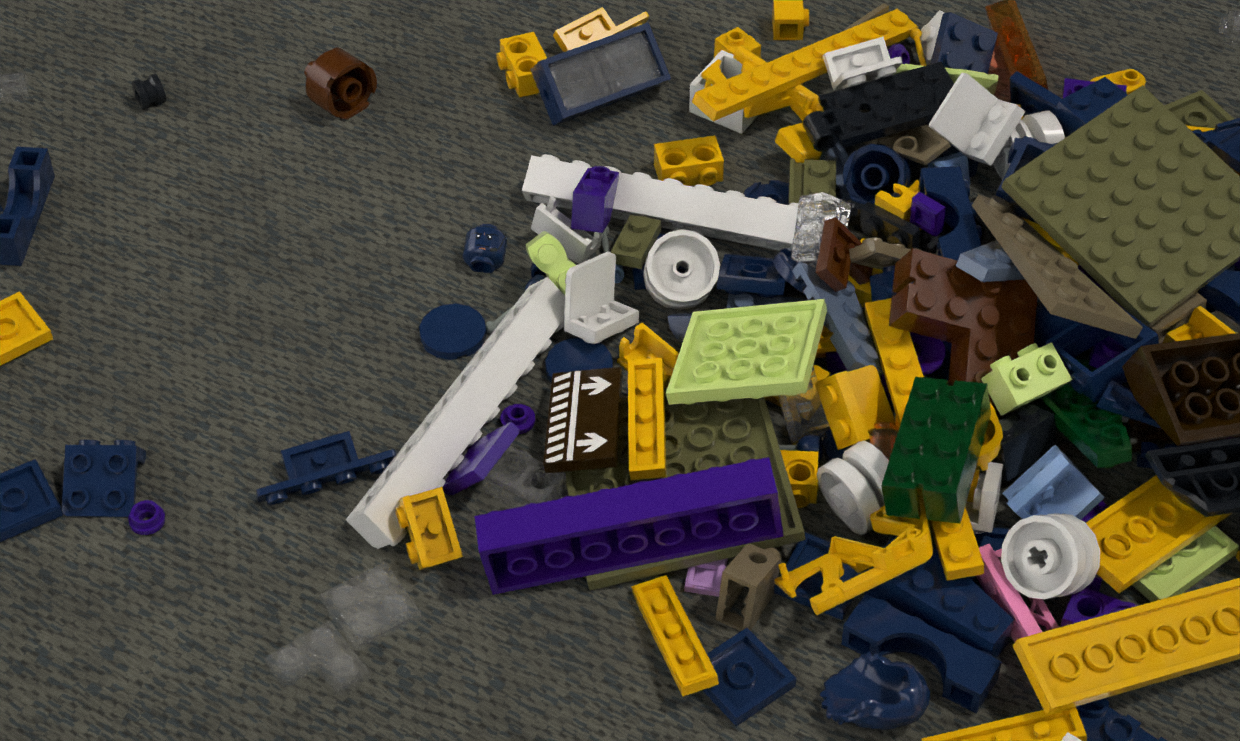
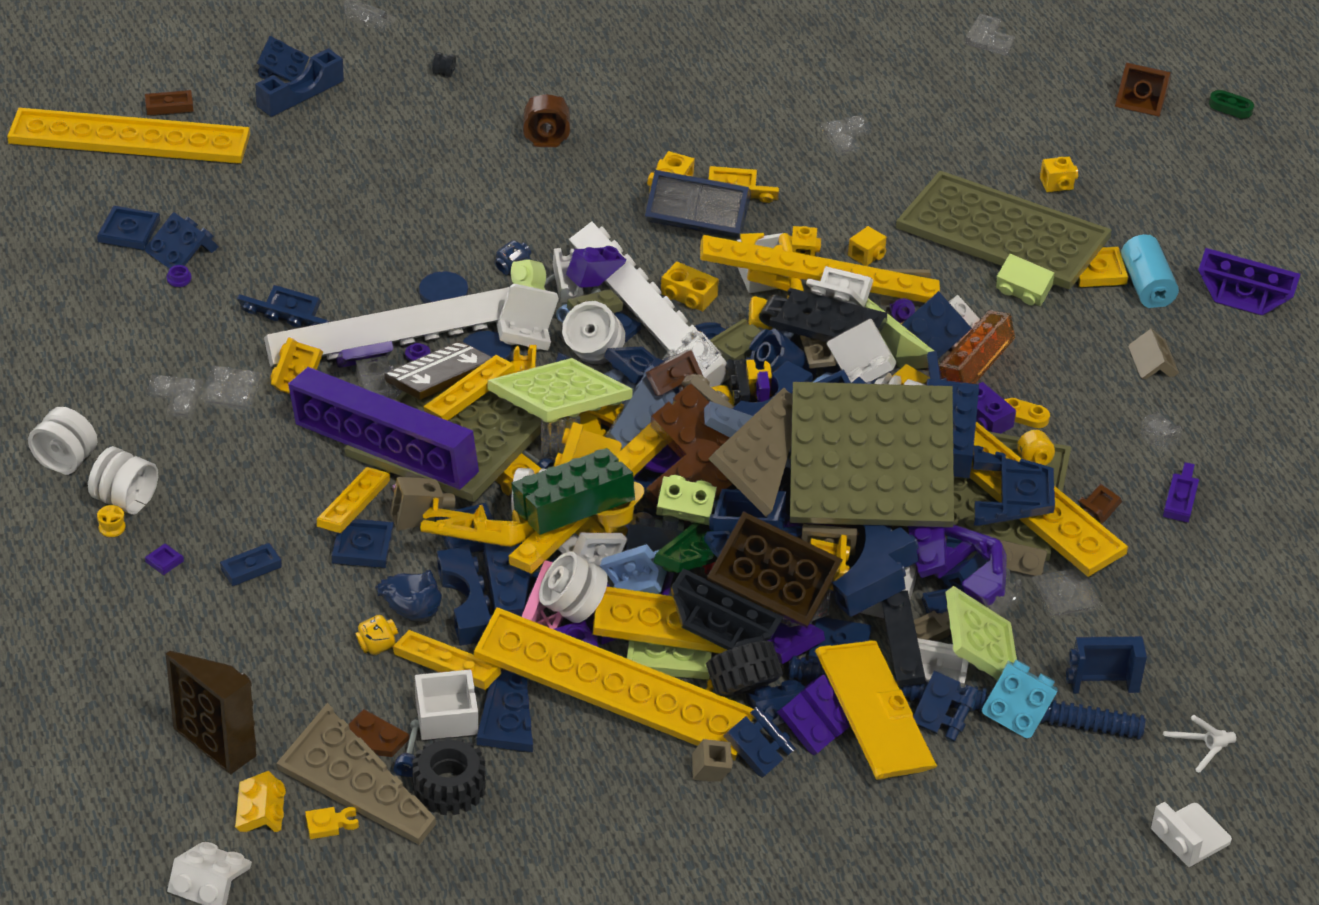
camera: 40 degrees right, 5 degrees down
(1196, 107) = (1036, 447): none -> yellow head

